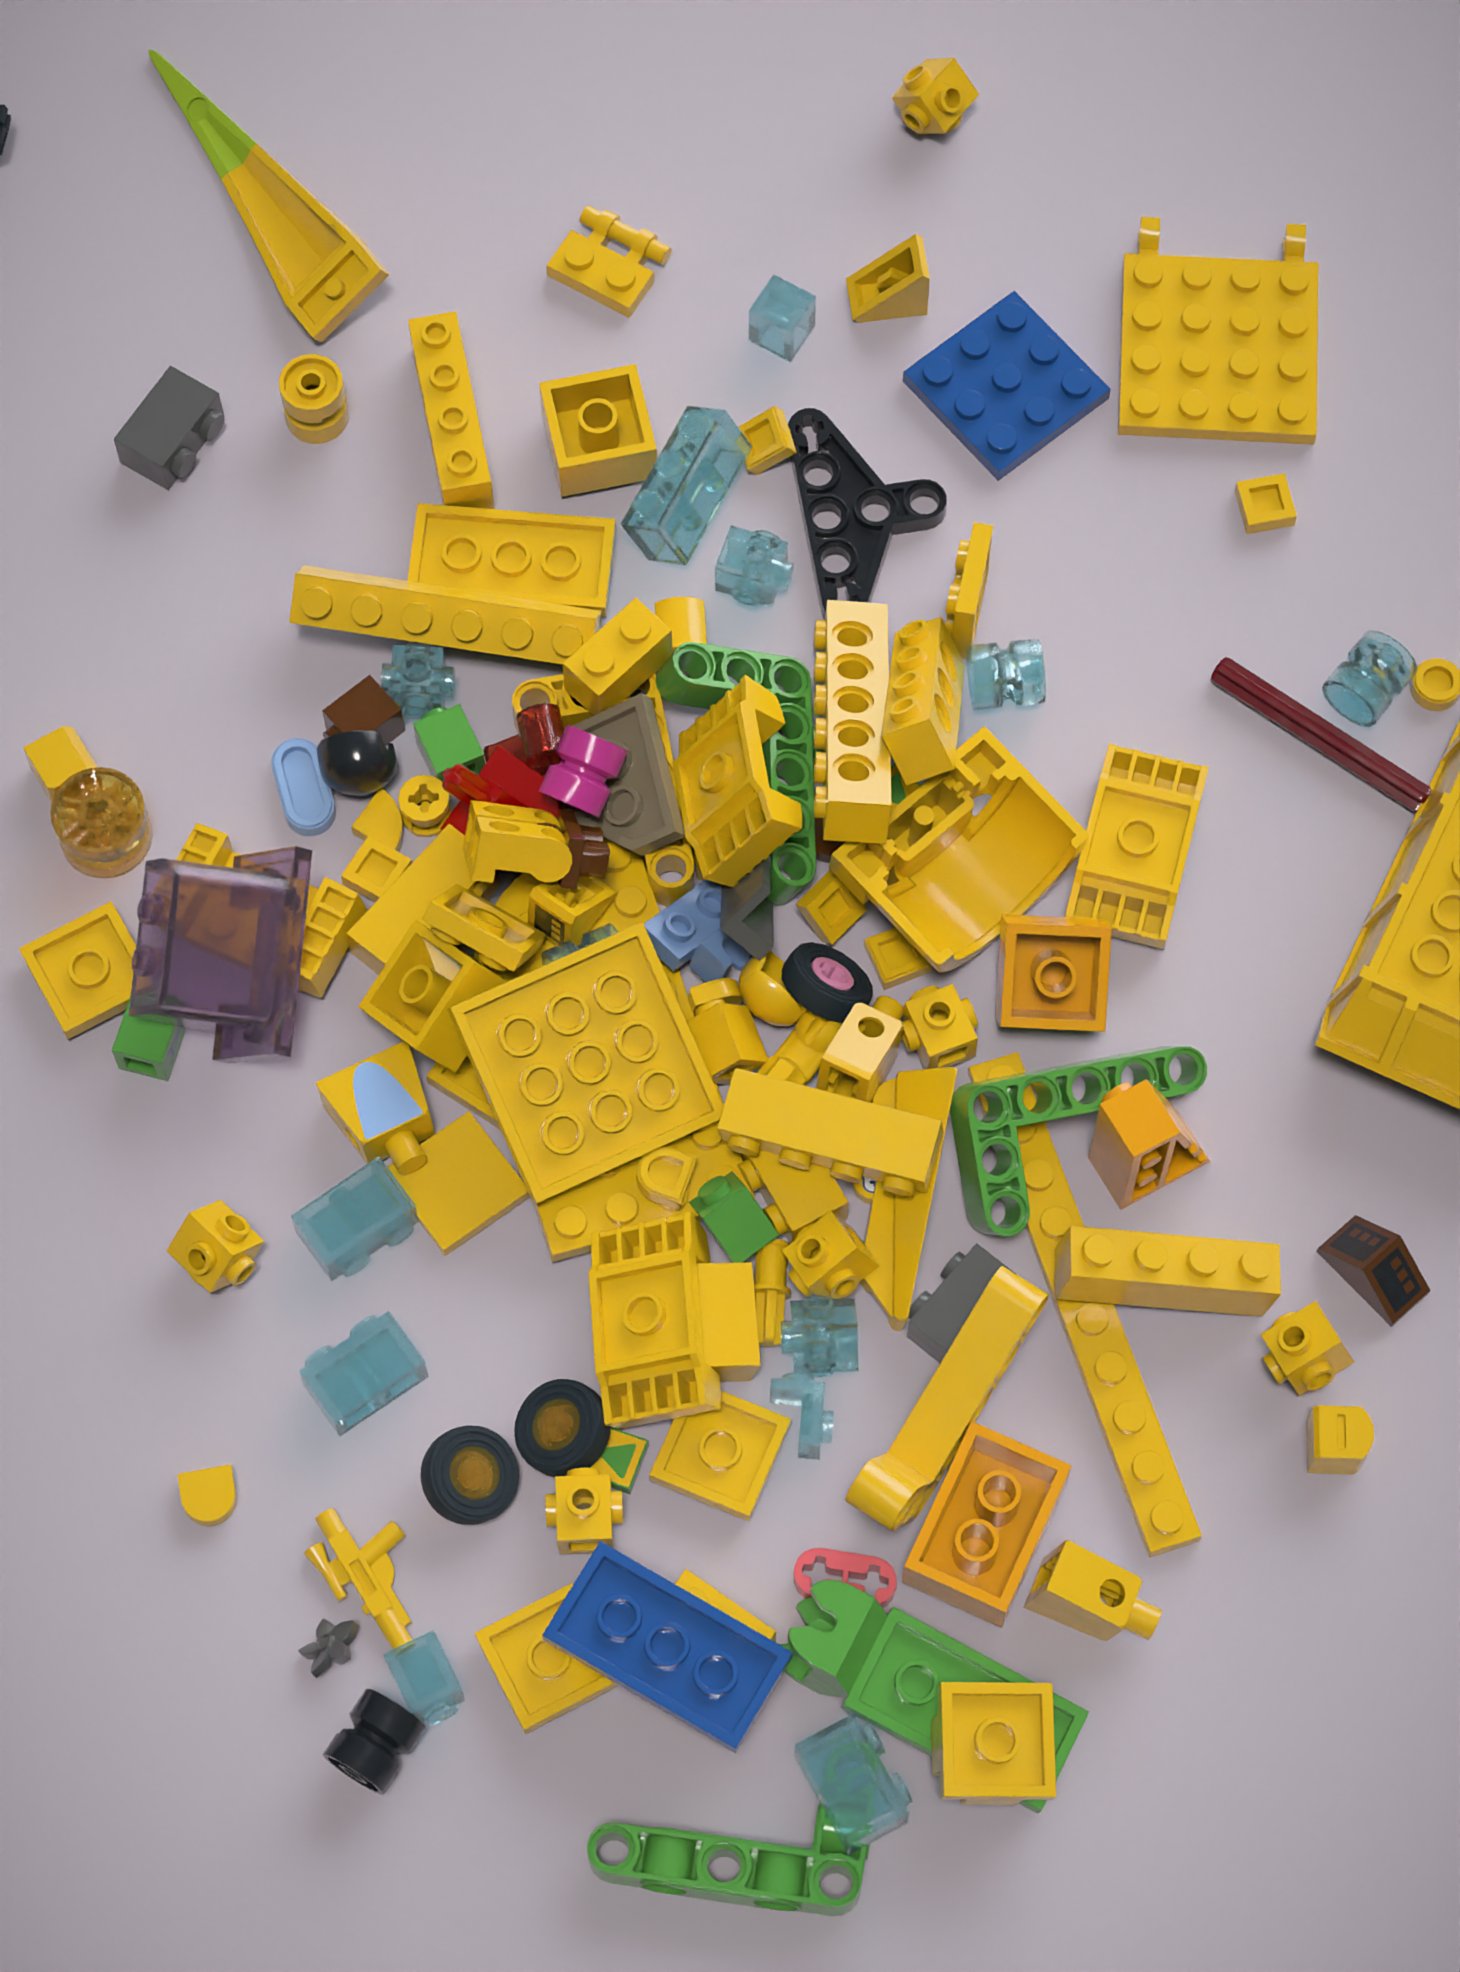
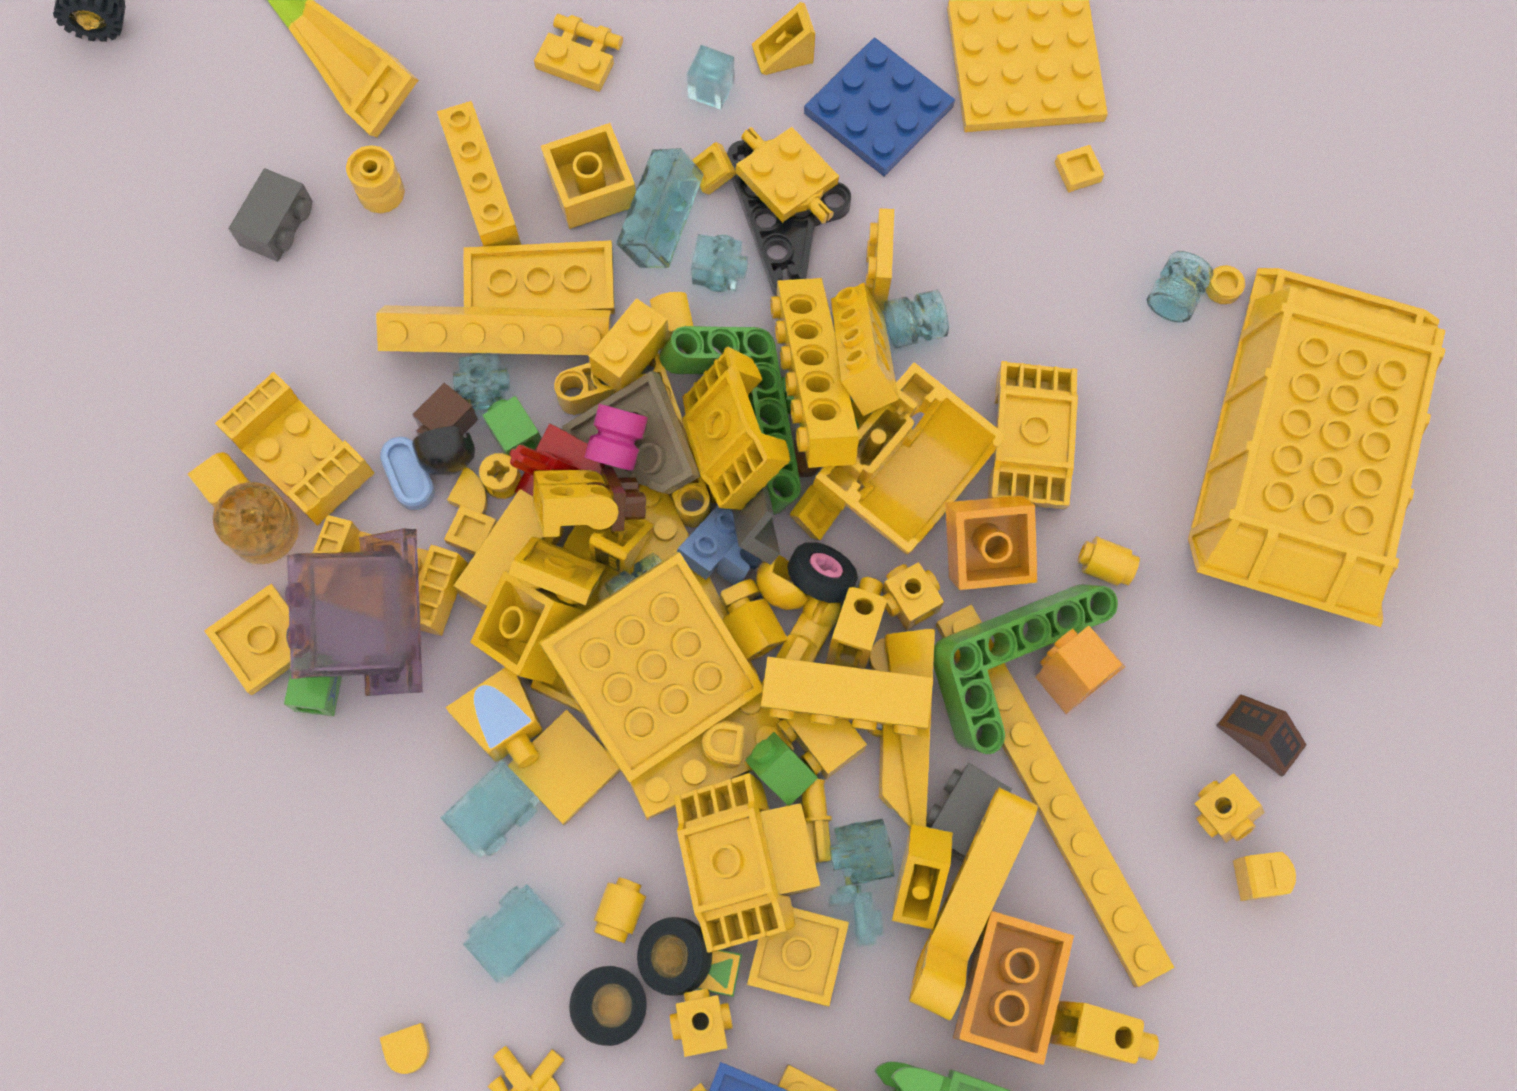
camera: 10 degrees left, 5 degrees up
(162, 735) = (295, 448): none -> yellow plate
(216, 1246) = (385, 849): yellow brick -> none
(500, 1364) = (619, 910): none -> yellow brick
(539, 735) = (577, 414): clear red panel -> none
(829, 1258) = (858, 790): yellow brick -> none
(846, 1566) = (909, 1055): coral beam -> none
(863, 461) = (787, 174): none -> yellow plate
(891, 1370) = (922, 876): none -> yellow brick
(895, 958) = (867, 544): yellow tile -> none
(1167, 1271) = (1116, 763): yellow brick -> none
(1208, 1021) = (1108, 561): none -> yellow brick
(1320, 734) = (1149, 333): dark red axle -> none

